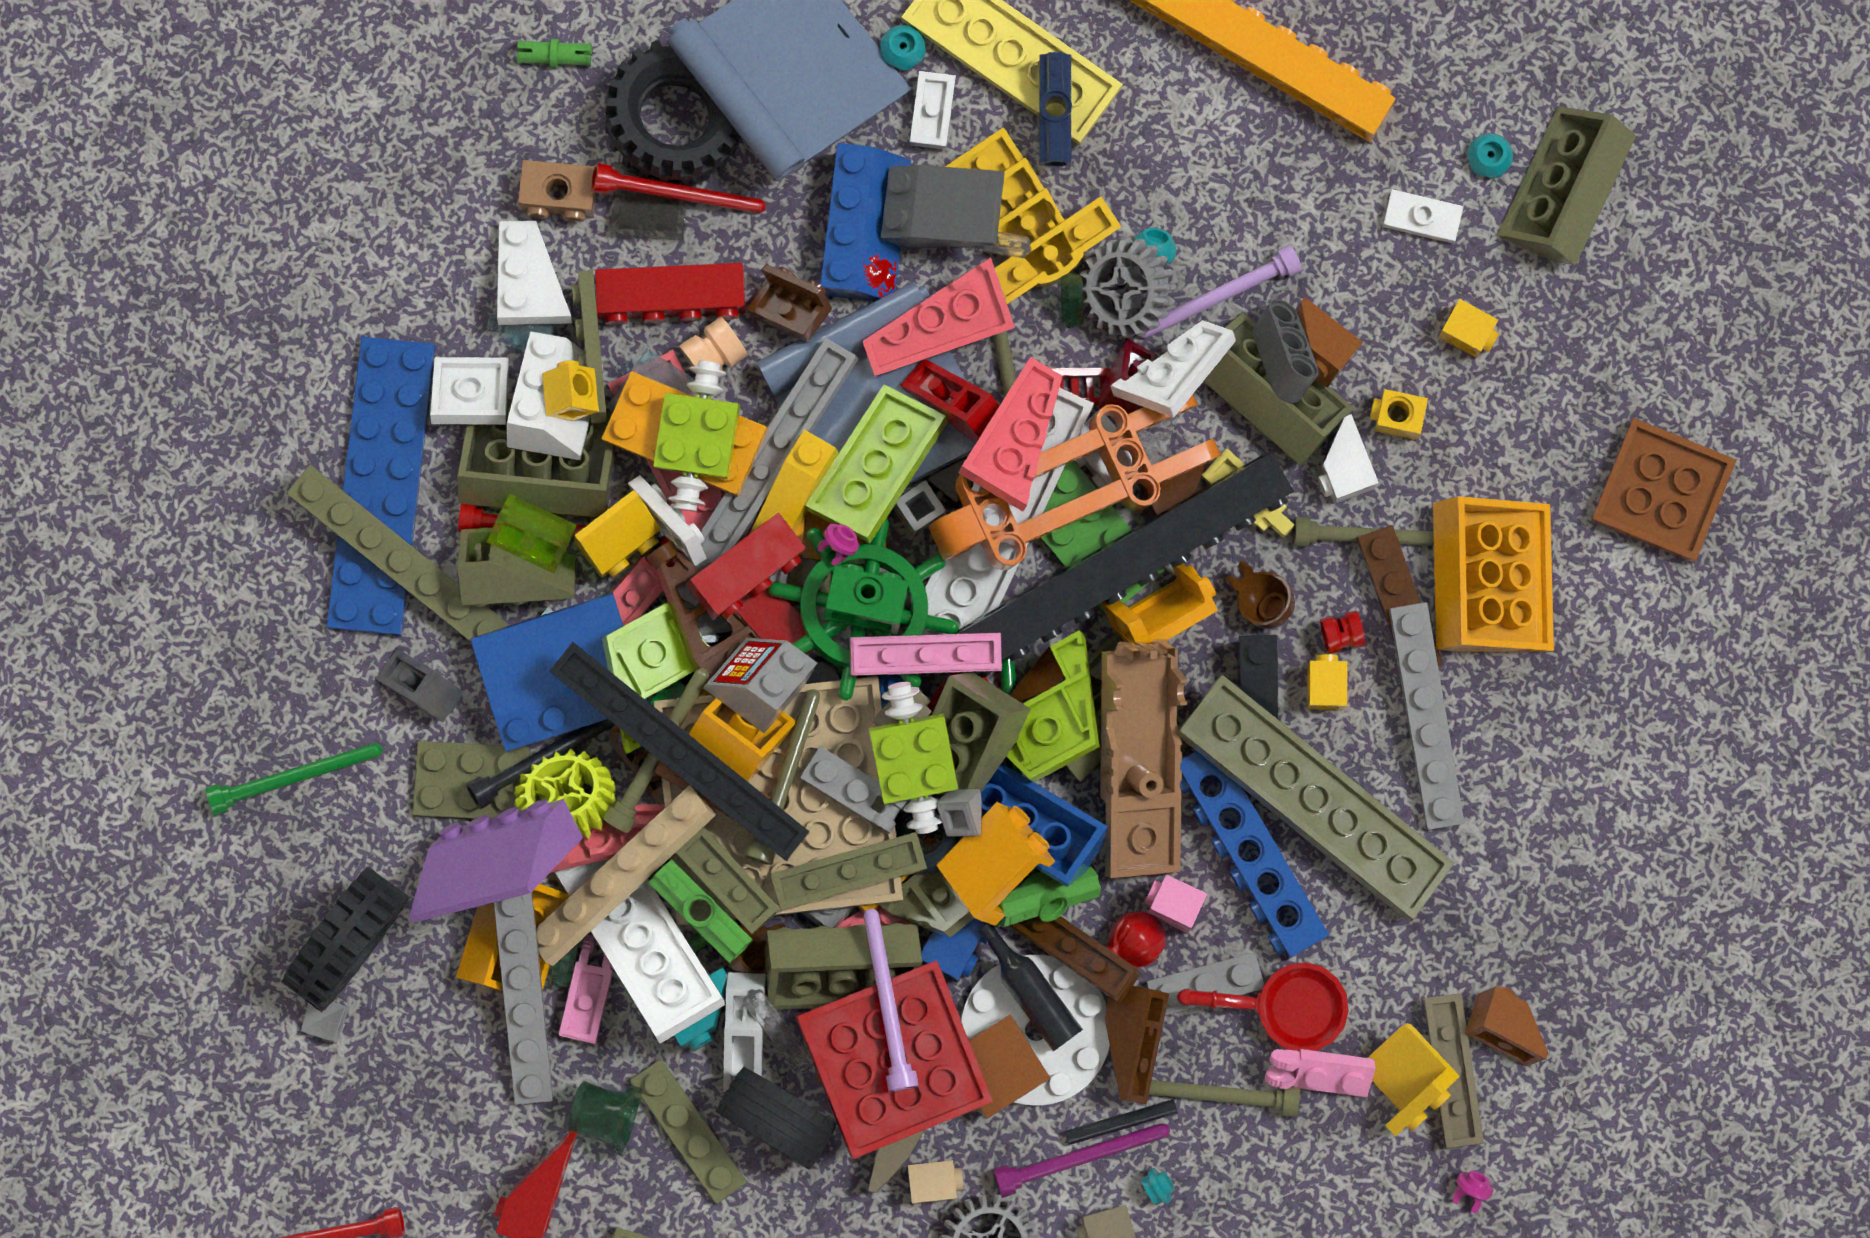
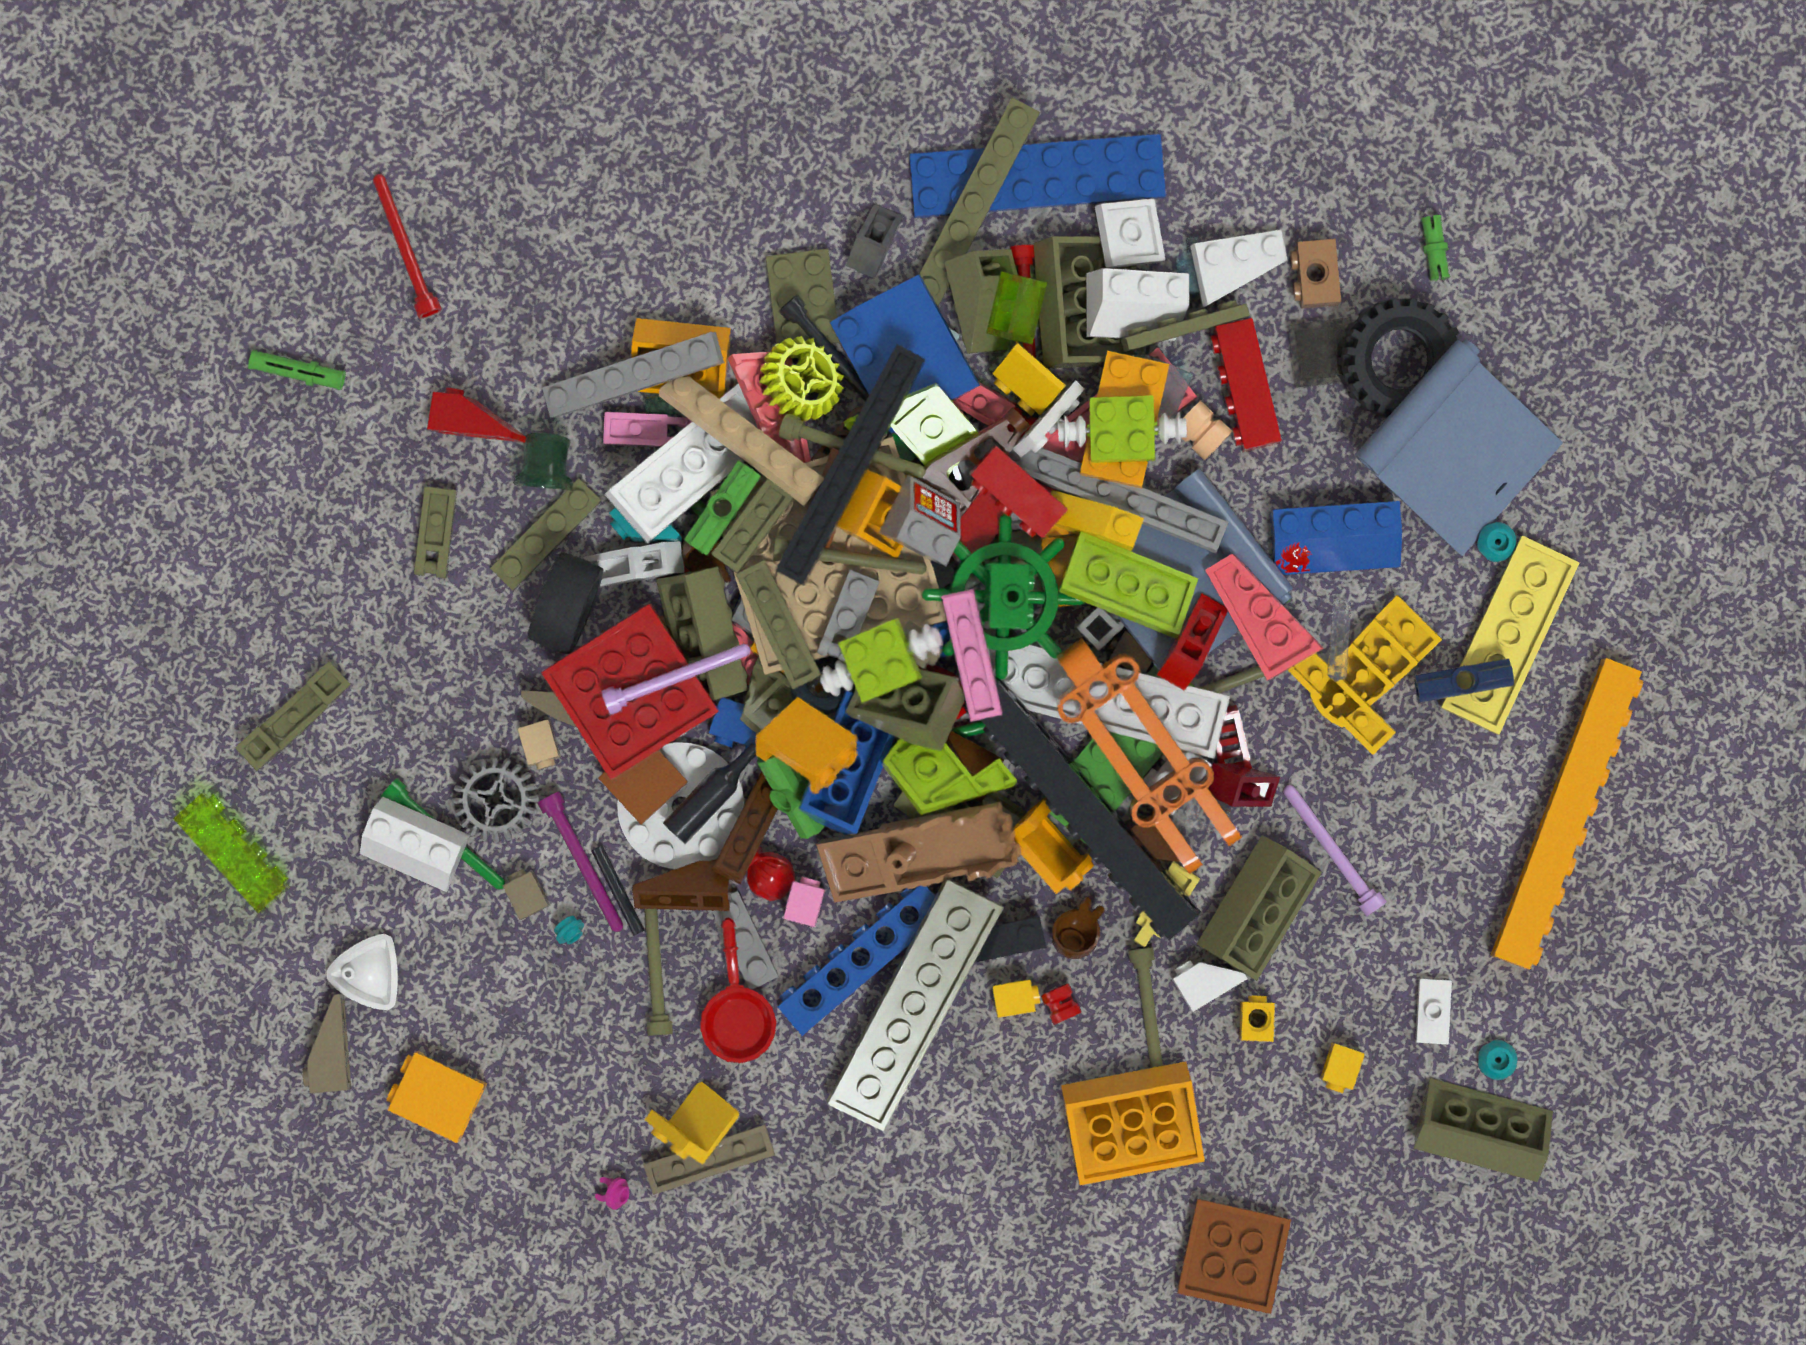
camera: 80 degrees right, 5 degrees up
(223, 797) = (751, 97): green piece -> none
(326, 1023) = (584, 217): light grey slope -> none
(344, 939) = (647, 220): black tyre -> none
(493, 858) = (733, 329): medium lavender slope -> none
(570, 391) = (1140, 316): yellow brick -> none
(608, 179) = (1330, 314): red piece -> none
(778, 1030) = (639, 590): clear axle -> none
(790, 303) = (1254, 487): reddish brown bracket -> none
(840, 539) = (1055, 566): dark pink plate -> none
(932, 110) = (1446, 577): white plate -> none
(942, 206) = (1361, 599): dark grey slope -> none
(961, 812) = (843, 709): light grey slope -> none
(1012, 442) = (1159, 693): coral wing -> none
(1072, 300) = (1302, 724): clear green piece -> none
(1129, 258) = (1304, 765): light grey gear -> none
(1159, 239) = (1362, 786): teal plate -> none
(1178, 373) = (1251, 824): white wing -> none
(1285, 351) = (1291, 913): dark grey beam -> none
(1321, 1072) = (687, 1048): bright pink hinge -> none
(1329, 341) = (1305, 943): dark orange slope -> none
(1389, 572) = (1097, 1047): reddish brown plate -> none
(1426, 716) = (1003, 1086): light grey plate -> none
(1507, 1026) = (754, 1197): dark orange slope -> none

